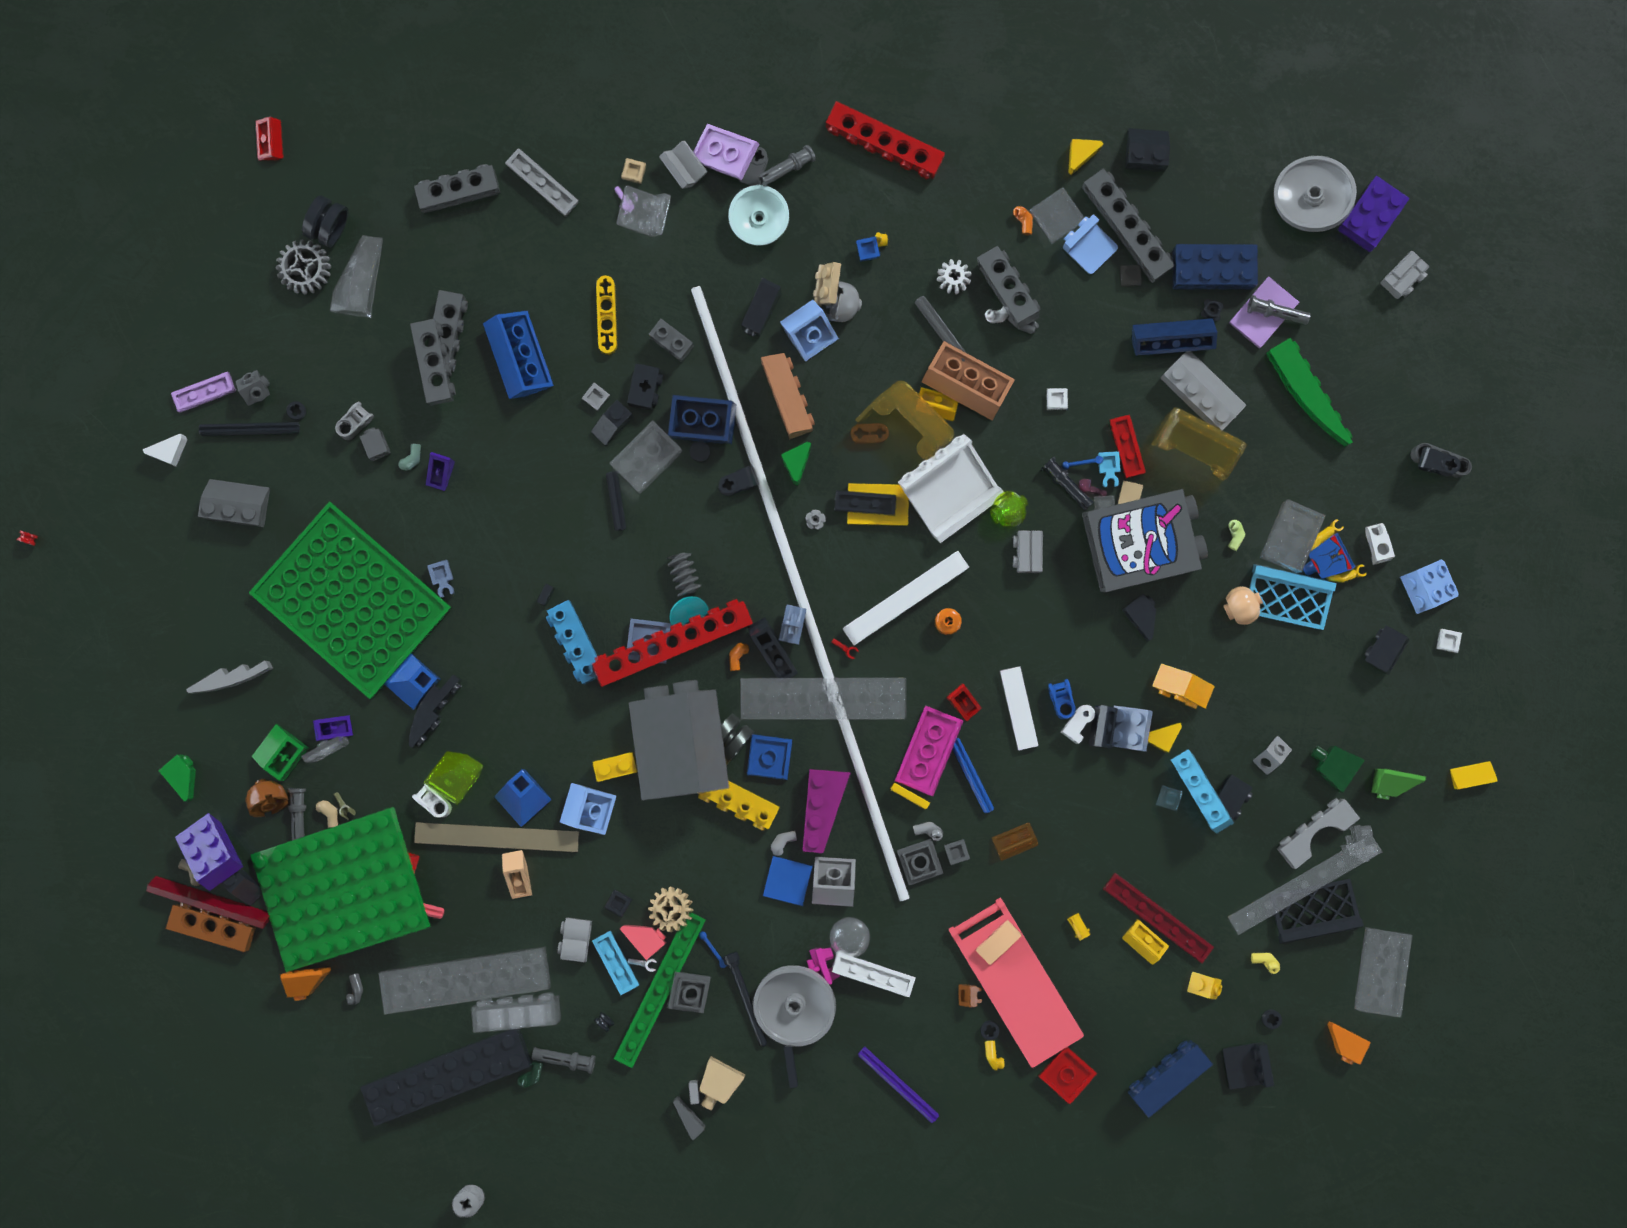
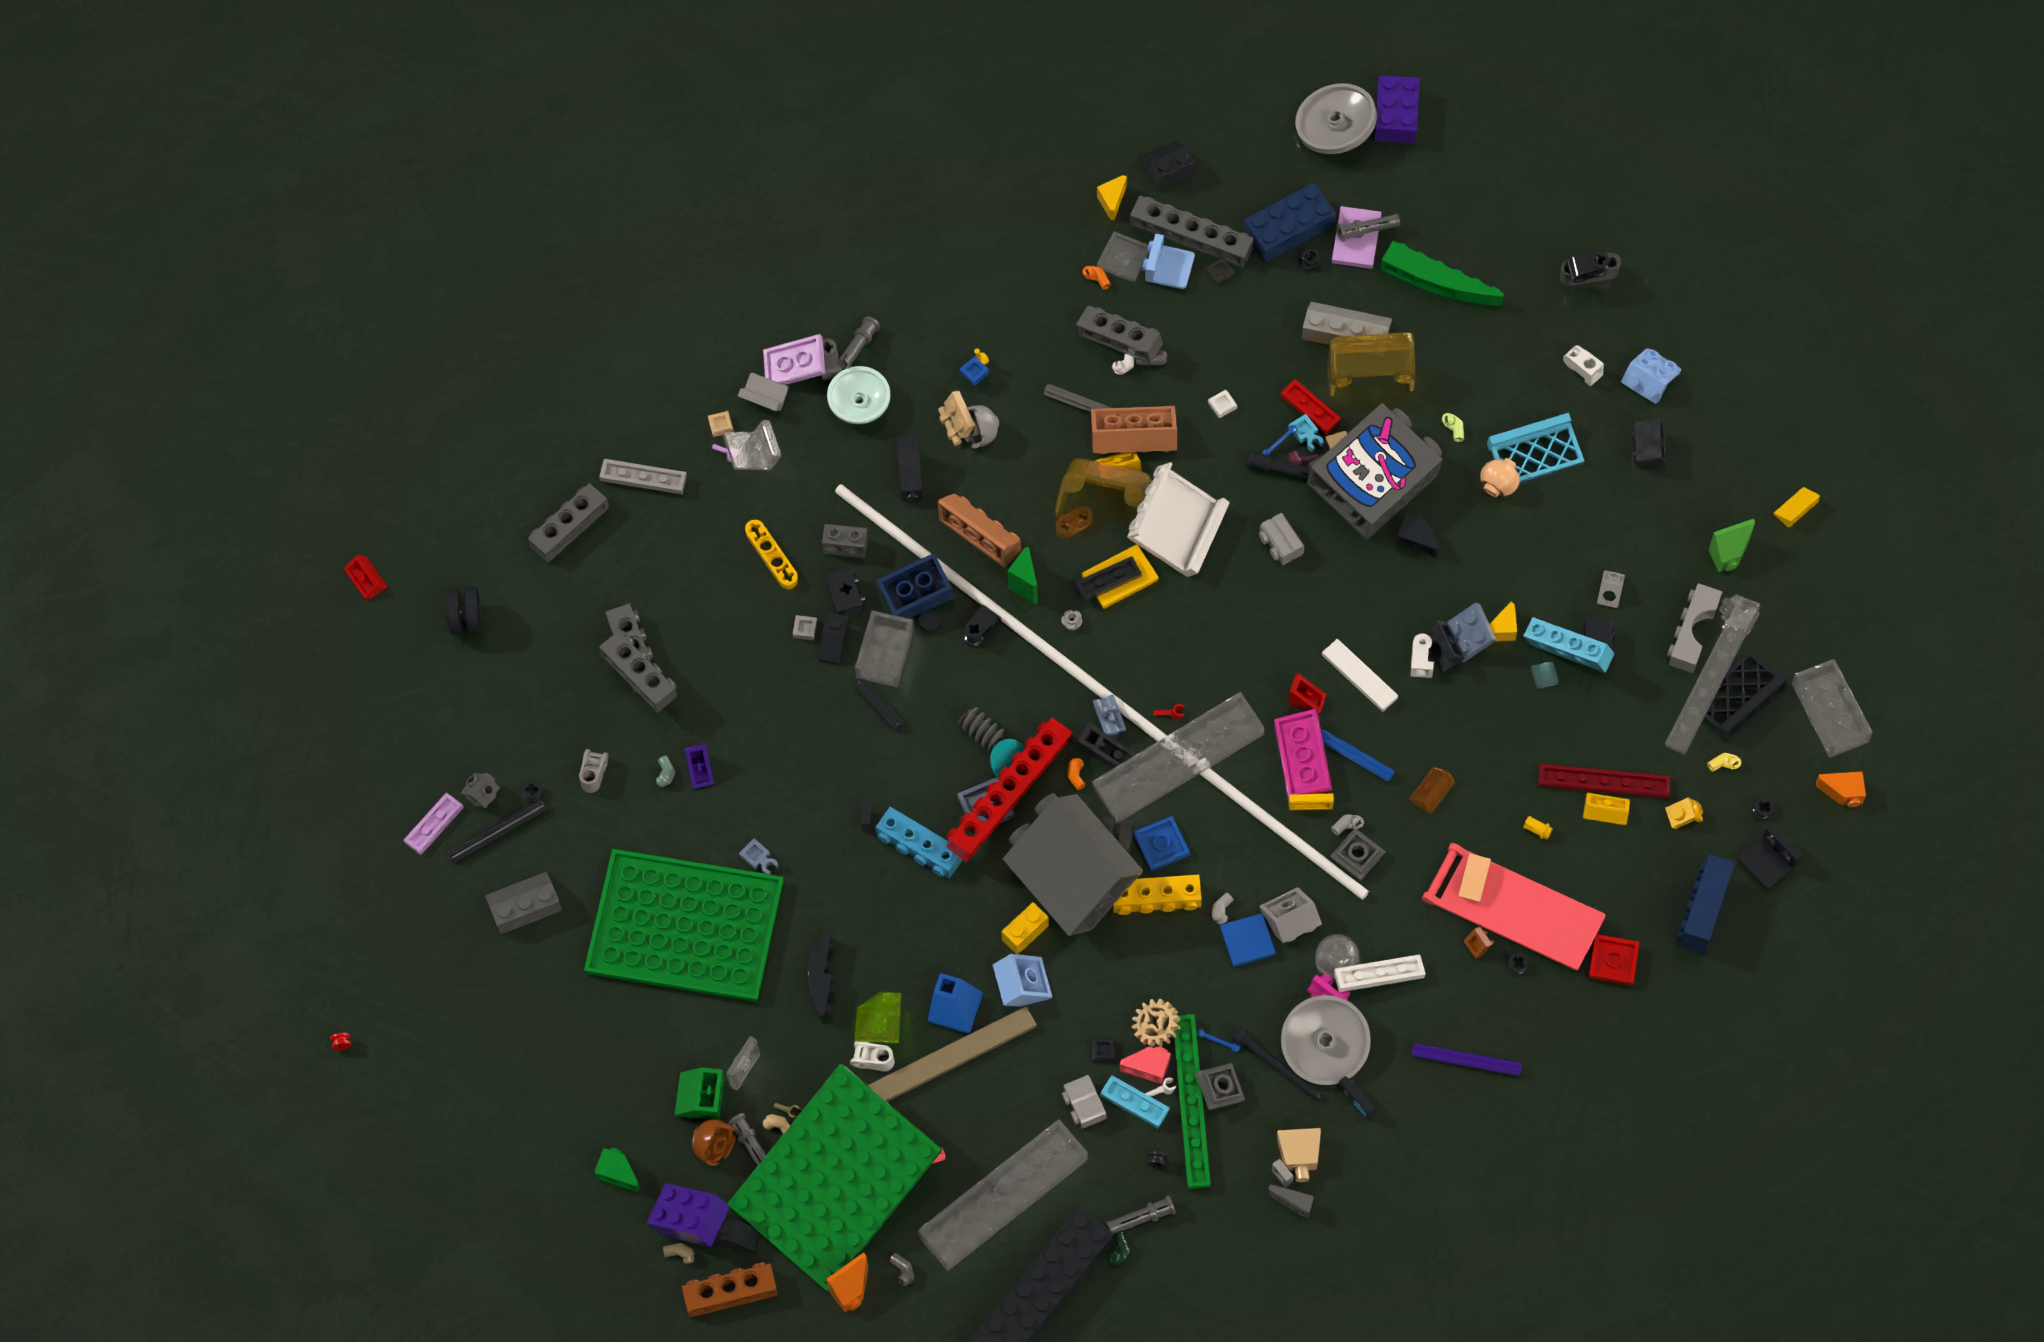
camera: 30 degrees left, 20 degrees down
(168, 450) = (430, 890): white slope -> none
(208, 902) = (713, 1268): dark red tile -> none
(222, 679) = (606, 1061): light grey slope -> none
(312, 264) = (457, 675): light grey gear -> none
(332, 727) = (731, 1044): dark purple slope -> none
(357, 283) = (523, 653): clear wedge -> none
(375, 444) = (625, 777): dark grey brick -> none
(412, 681) = (787, 961): blue slope -> none
(516, 874) = (992, 1076): light nougat slope -> none
(516, 1013) = (1078, 1188): clear brick -> none
(517, 354) = (710, 629): blue slope -> none
(809, 330) = (964, 465): light blue slope -> none
(823, 801) = (1235, 850): magenta wedge -> none
(879, 130) = (939, 270): red brick -> none
(906, 598) = (1196, 638): white beam -> none
(943, 627) = (1248, 635): orange head -> none
(956, 852) = (1385, 824): dark grey tile -> none
(958, 271) = (1065, 353): white gear -> none
(996, 1063) = (1535, 984): yellow arm -> none
(1009, 509) = (1240, 514): clear neon green plant -> none
(1062, 697) = (1390, 642): blue piece -> none
(1174, 336) = (1291, 295): dark blue brick -> none
(1184, 686) = (1493, 568): light orange brick -> none
(1292, 536) = (1504, 397): clear brick -> none
(1331, 557) = (1550, 396): torso -> none
(1337, 766) = (1673, 563): dark green torso -> none
(1404, 275) = (1457, 141): light grey brick -> none
(1449, 640) = (1699, 410): white tile -> none

